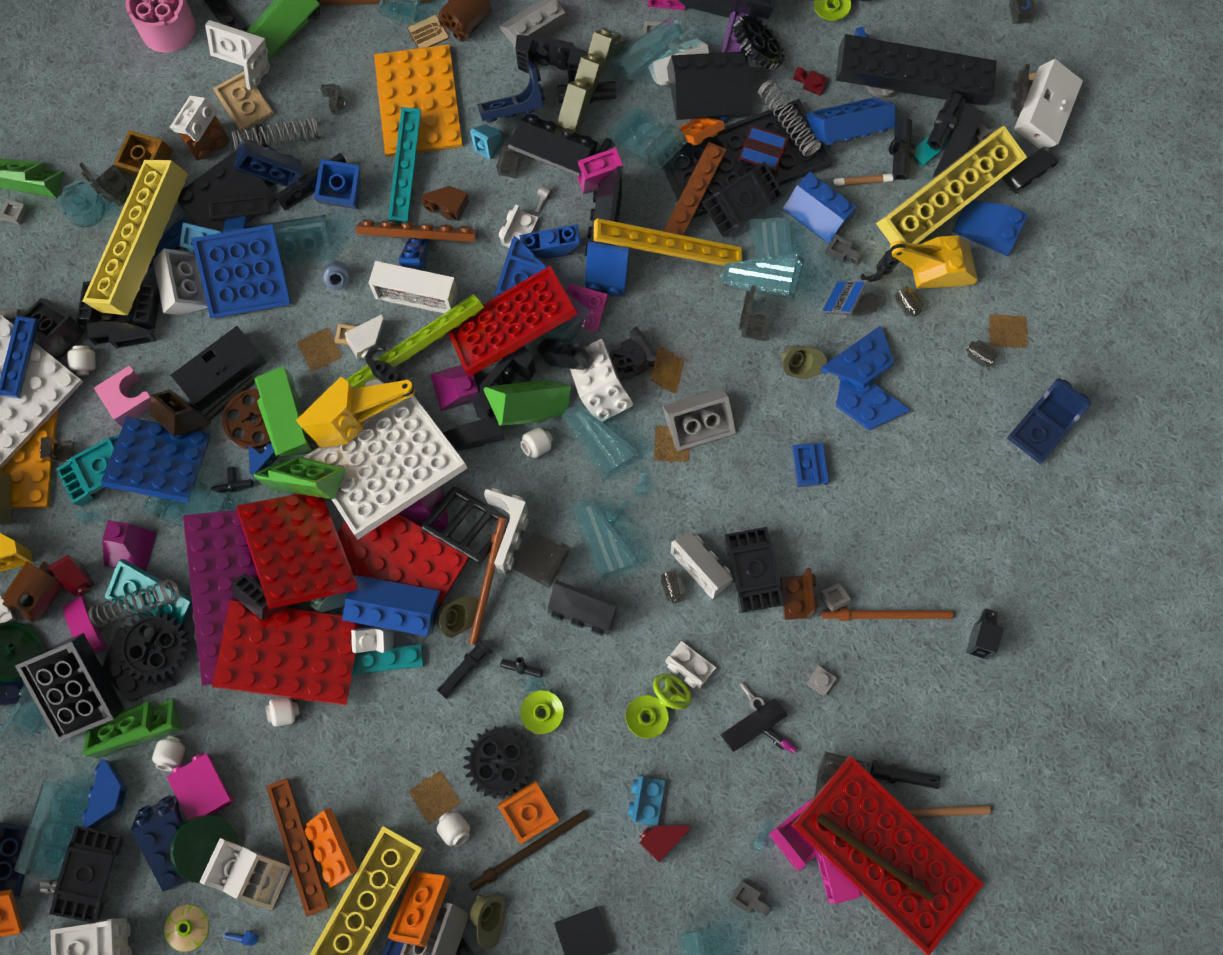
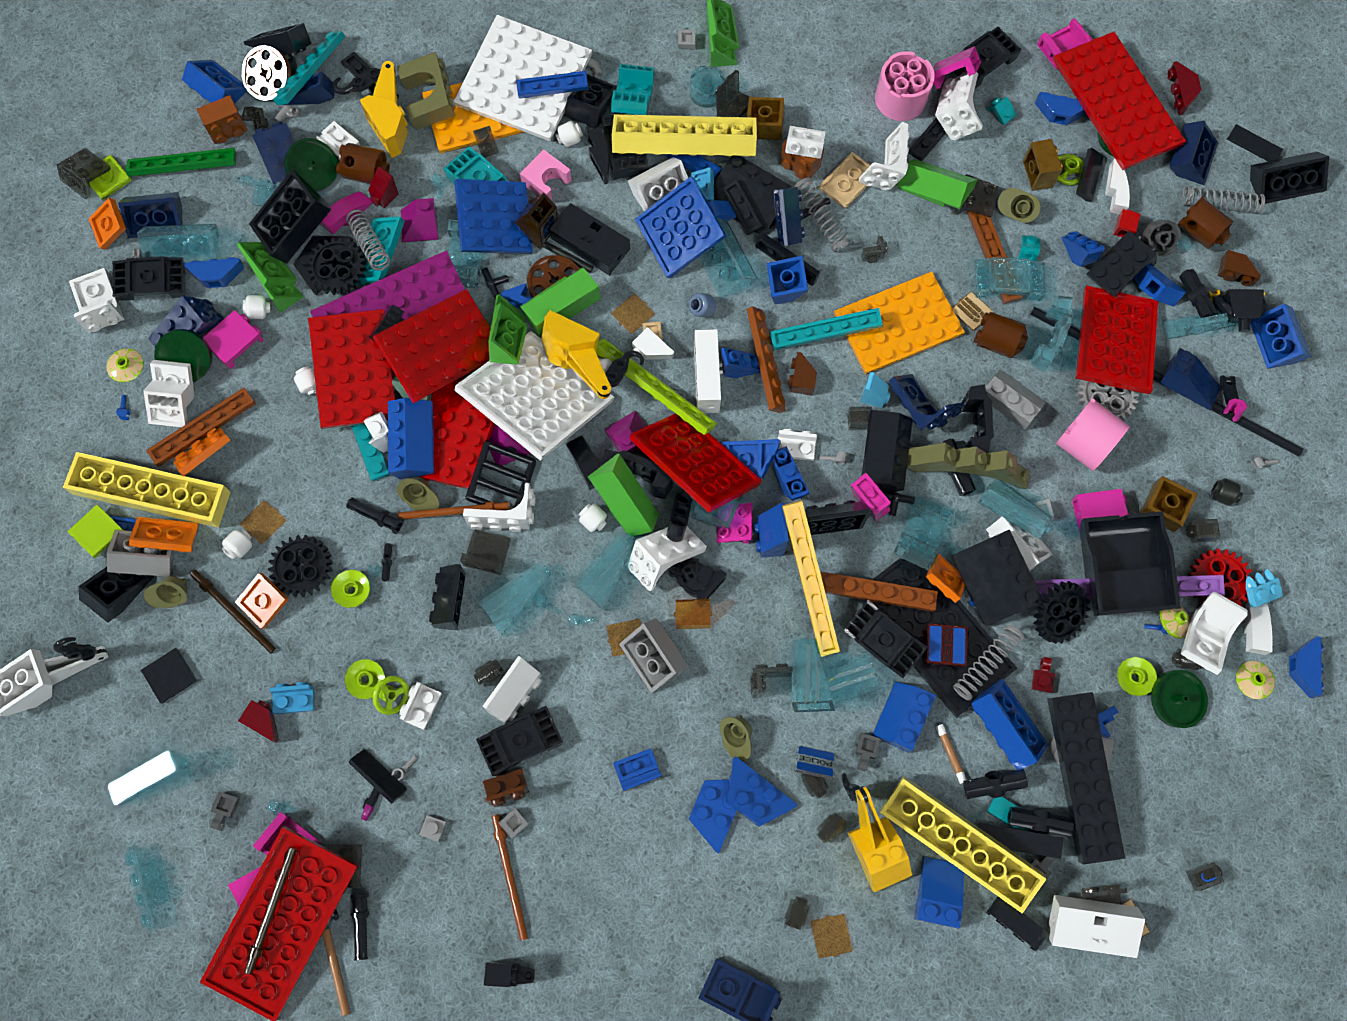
camera: 70 degrees right, 0 degrees up
(55, 279) = (633, 90): none -> teal plate

